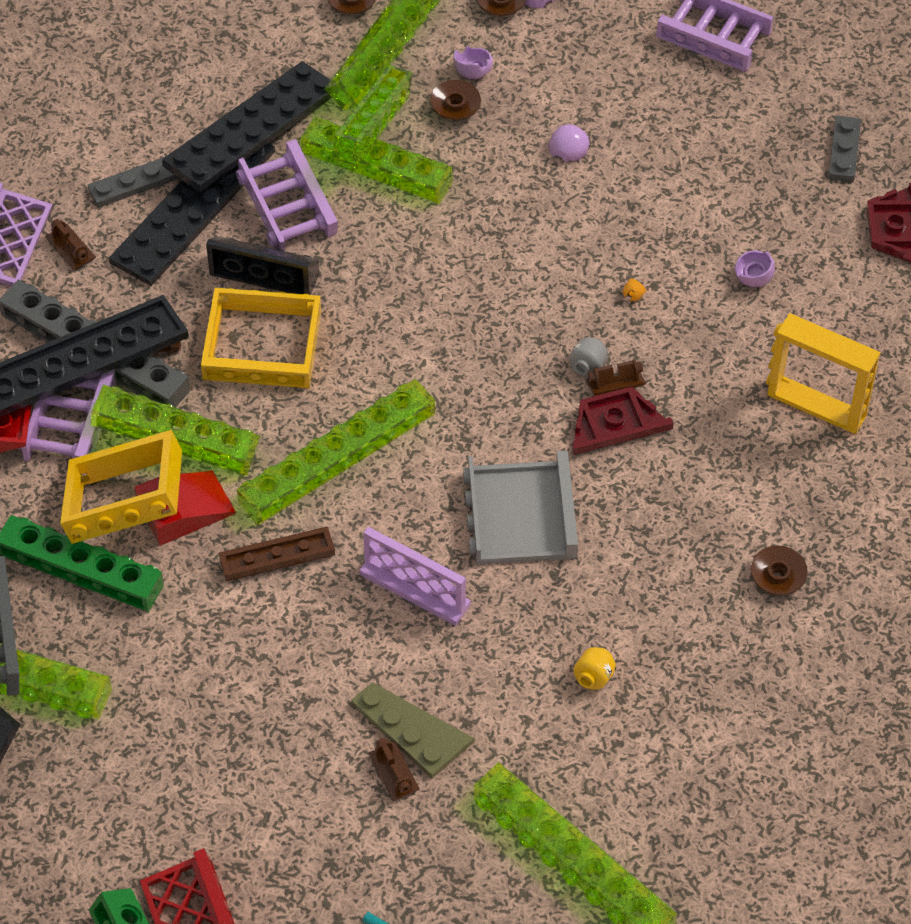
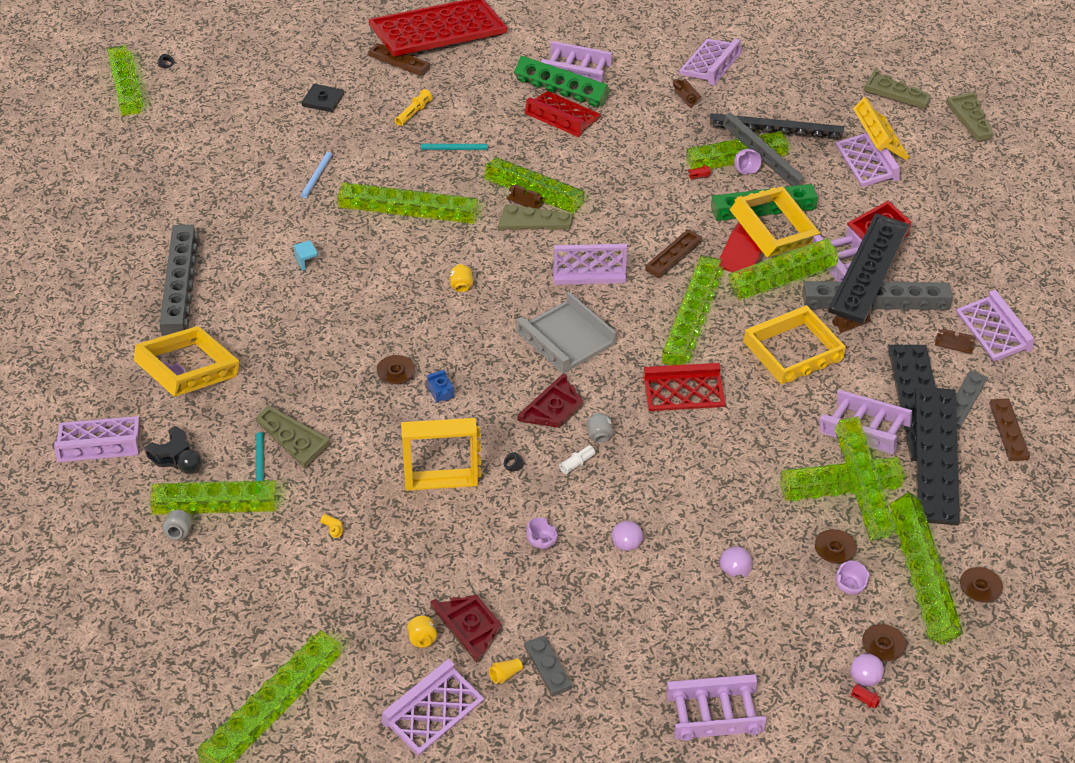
camera: 145 degrees right, 10 degrees down
(33, 643) = (747, 161): none -> lavender hair
(117, 675) = (703, 171): none -> red pin
(133, 124) = (1009, 429): none -> reddish brown plate
(262, 266) = (842, 371): black slope -> none
(402, 838) = (553, 191): none -> clear neon green brick
(435, 372) = (682, 375): none -> red fence
(605, 380) = (572, 425): reddish brown hinge -> none
(634, 289) = (603, 485): light orange hinge -> none
(643, 339) = (576, 459): none -> white axle
(658, 227) = (627, 535): none -> lavender hair
(710, 378) = (517, 465): none -> black piece
(738, 515) = (440, 386): none -> blue brick
(785, 835) = (304, 251): none -> medium azure panel
(893, 160) = (502, 671): none -> yellow cone

